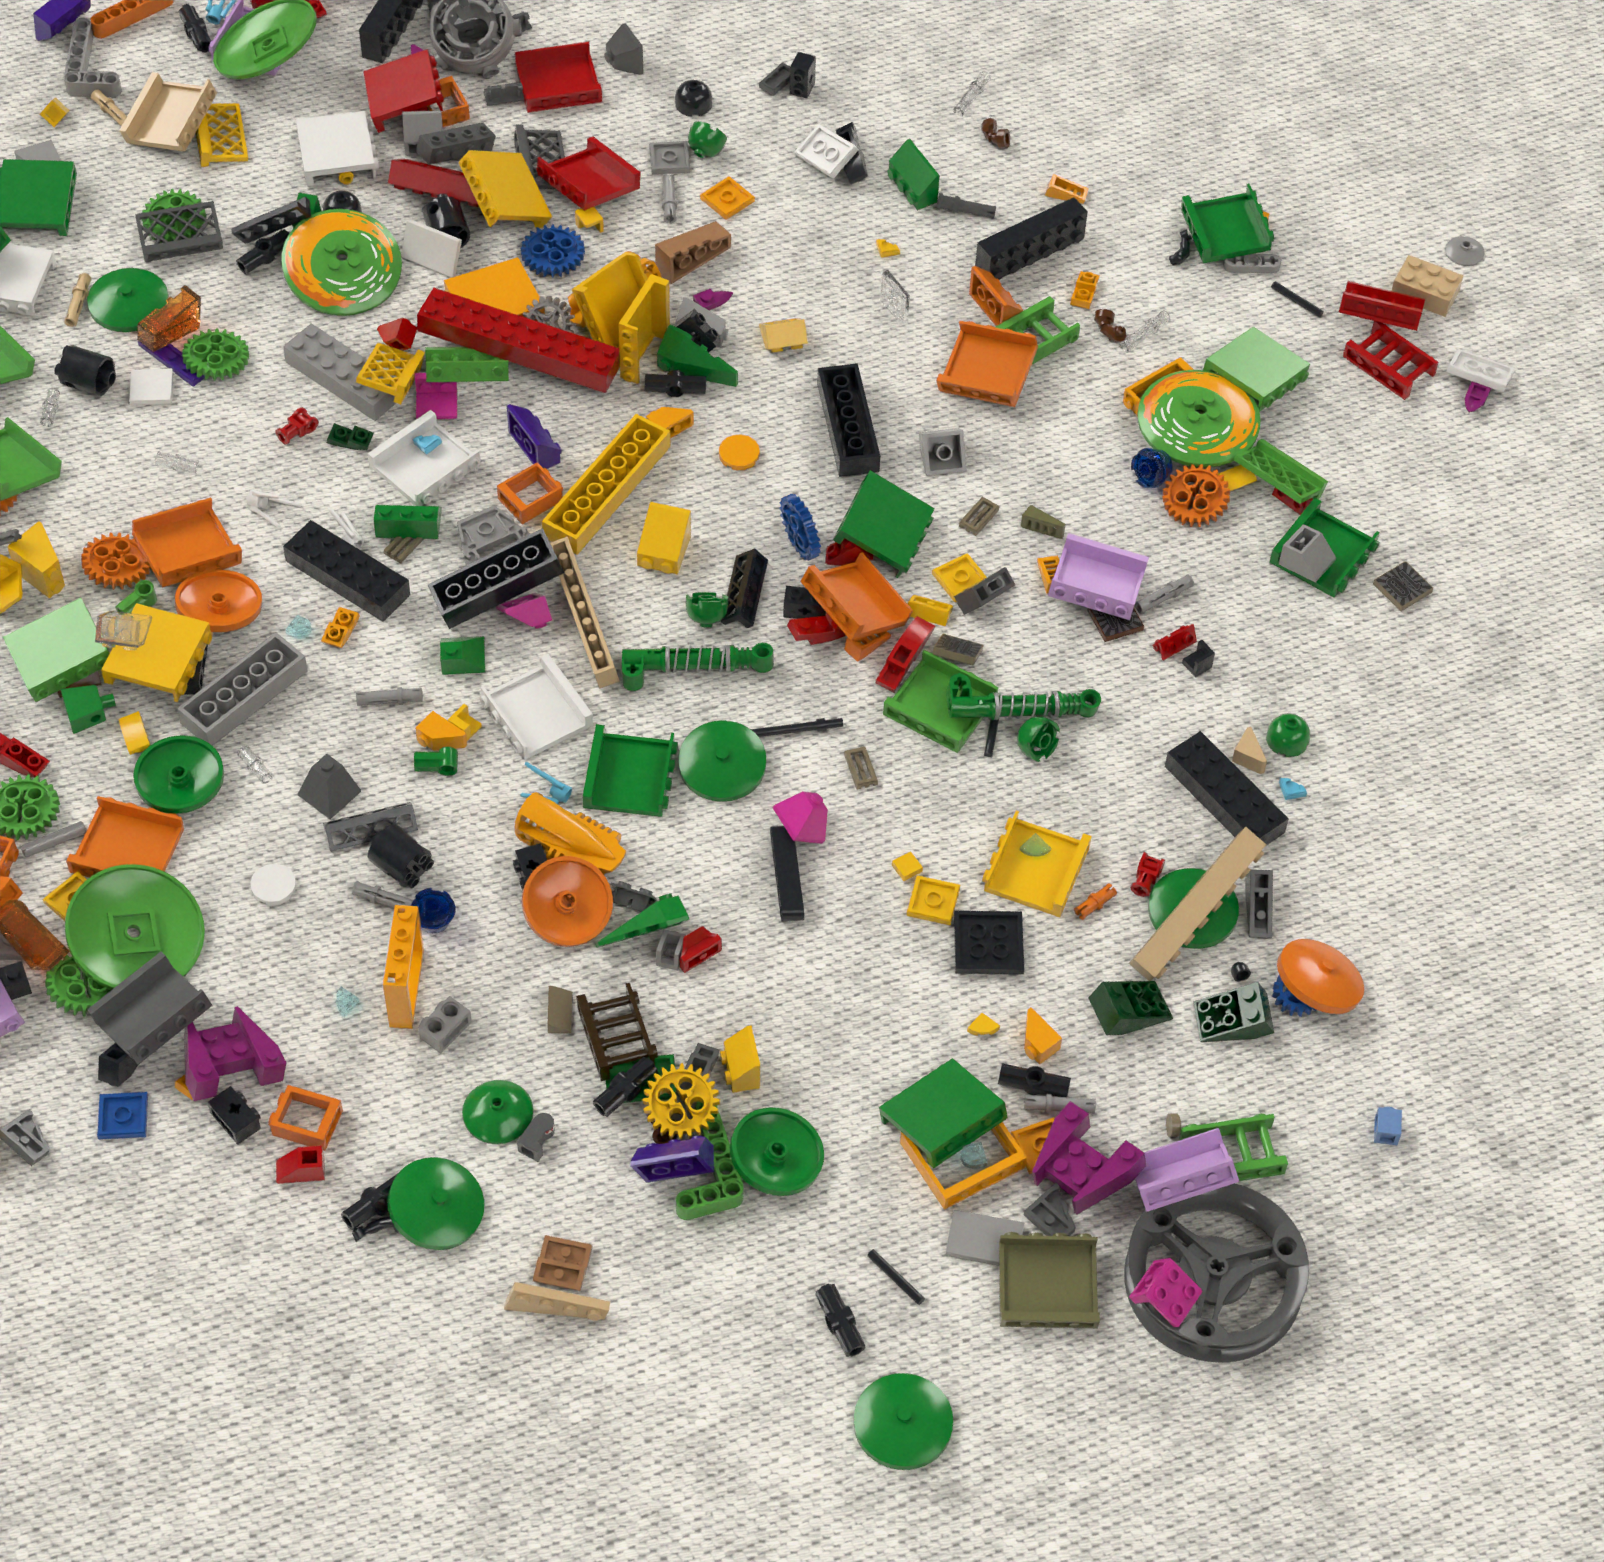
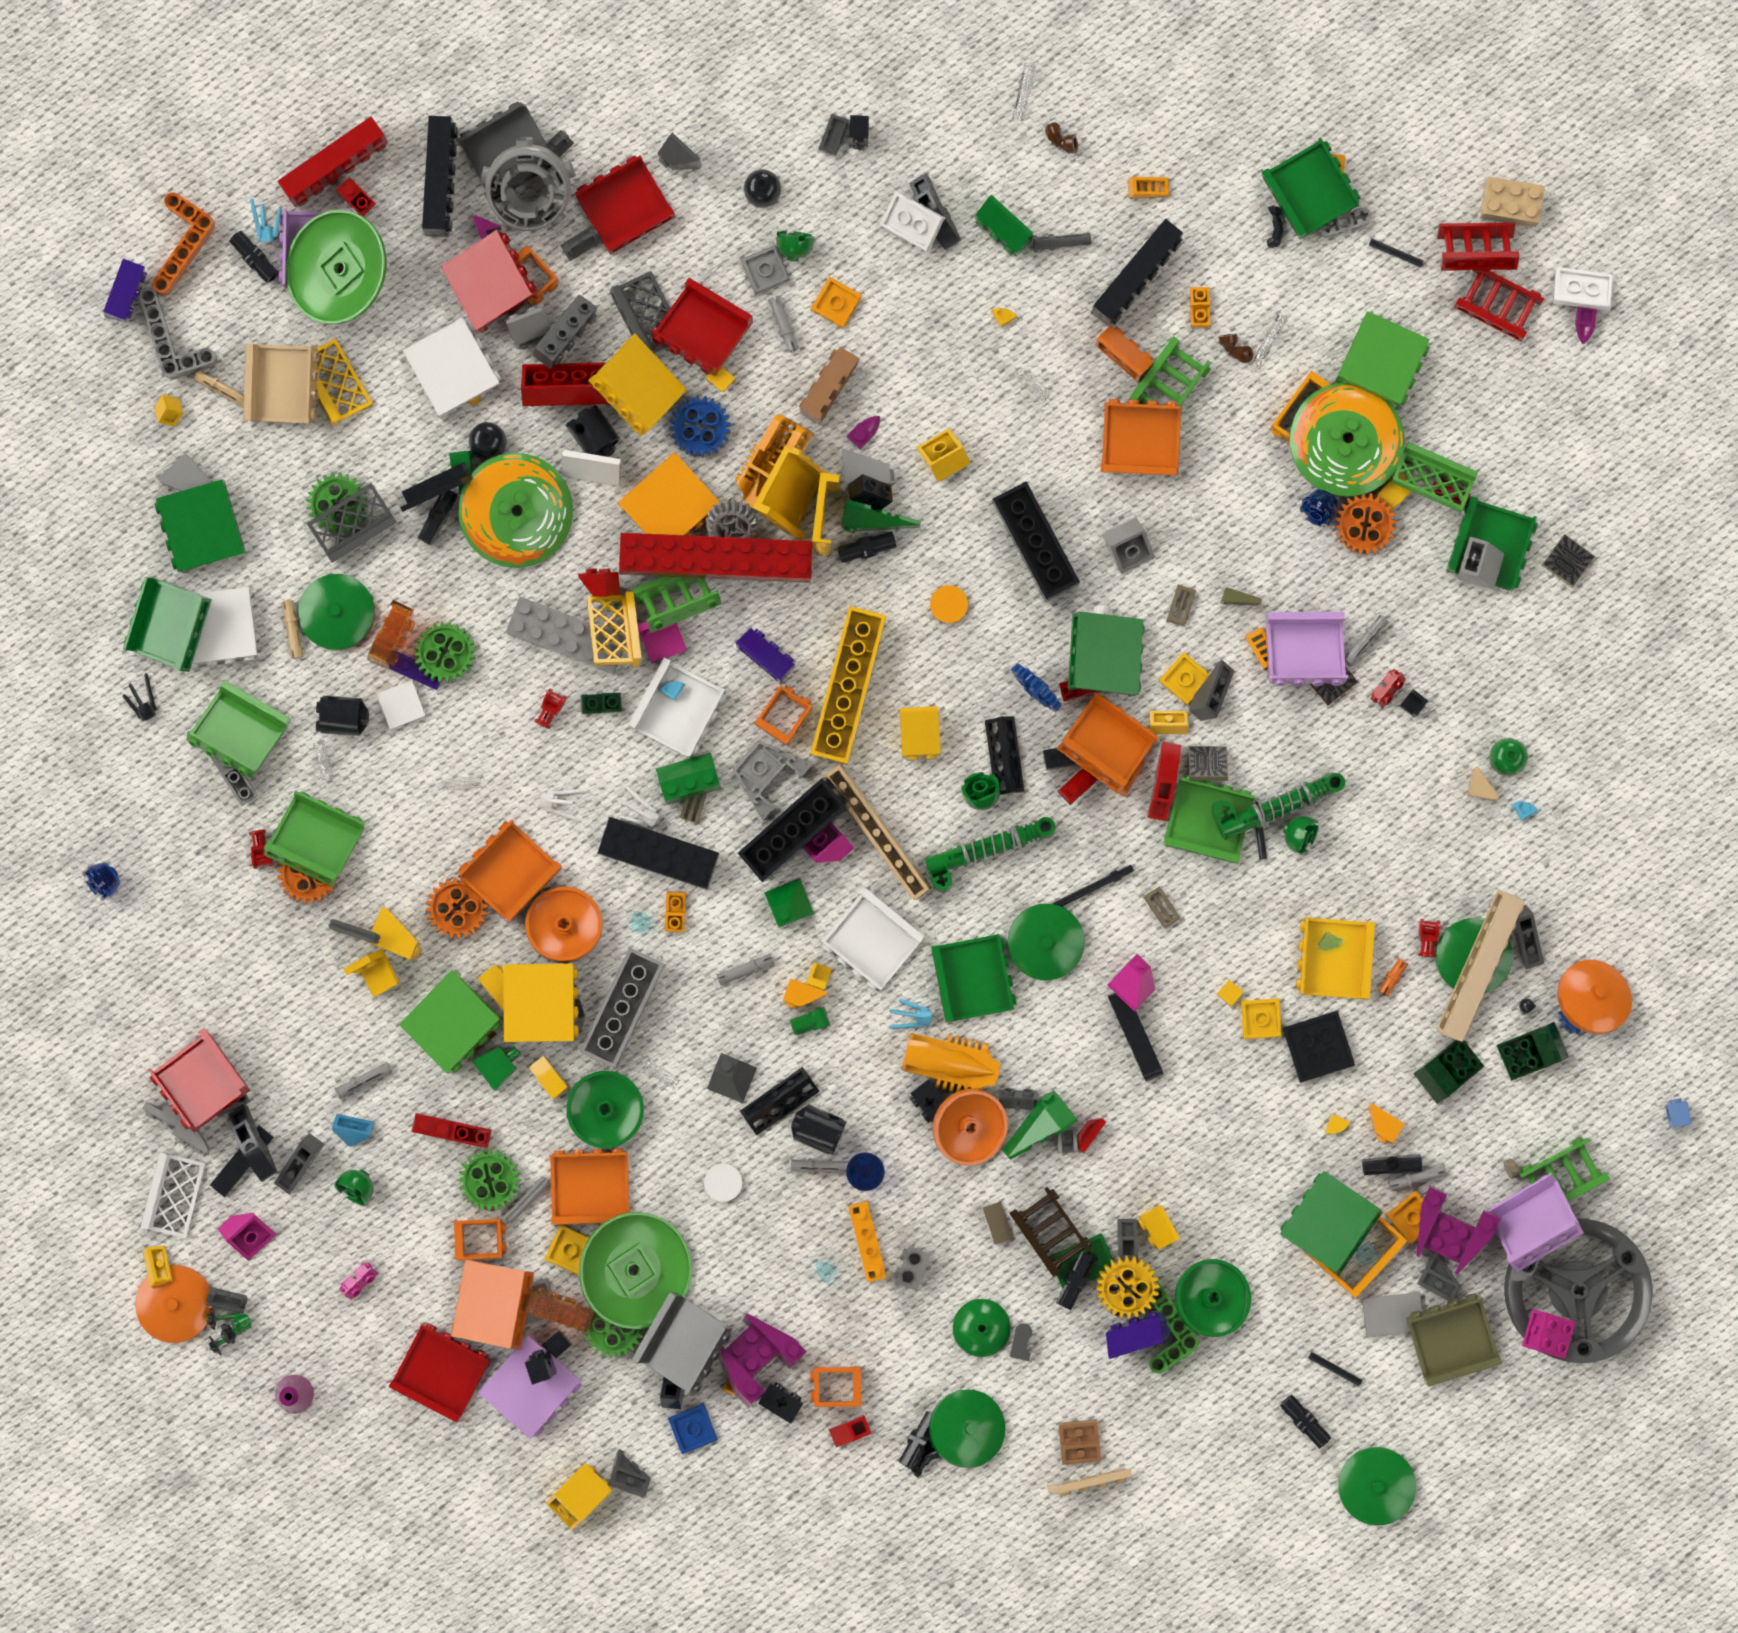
camera: 15 degrees left, 30 degrees up
(122, 629) = (507, 999): clear slope -> none
(143, 594) = (491, 946): bright green piece -> none
(672, 419) = (875, 595): light orange slope -> none
(1224, 789) = (1472, 836): black brick -> none
(1464, 251) = (1531, 146): light grey dish -> none

